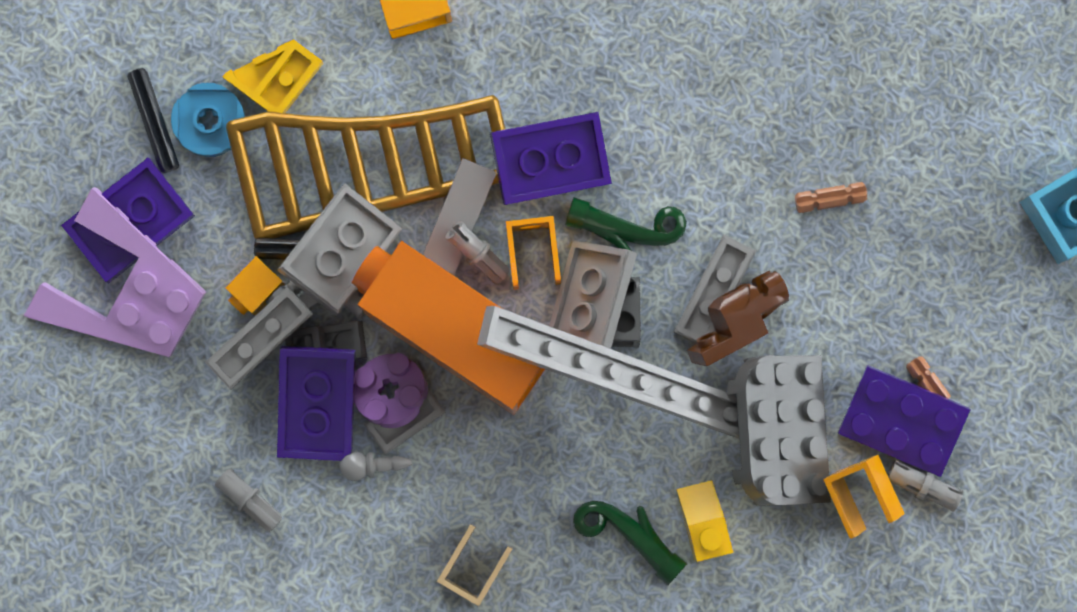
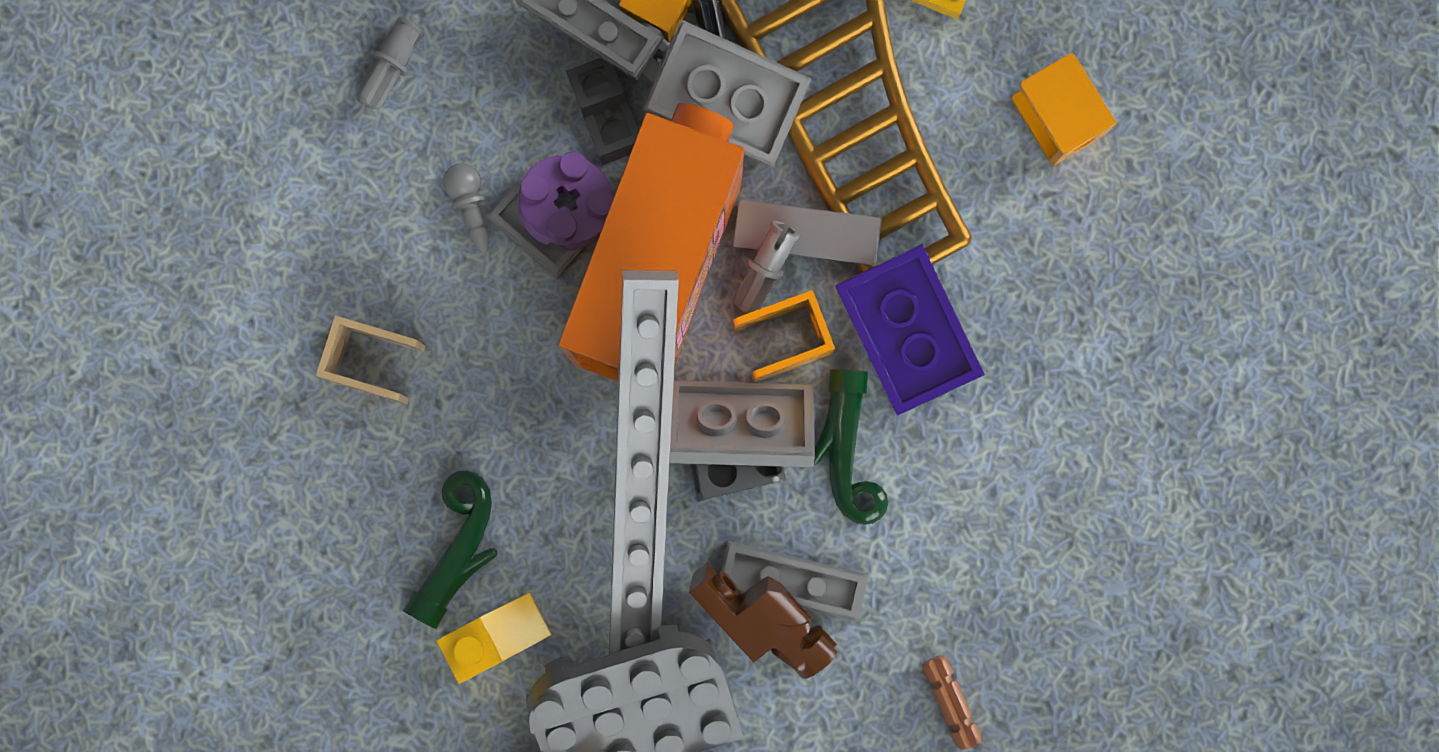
camera: 75 degrees right, 0 degrees up
(315, 403) = (527, 113): dark purple plate -> none

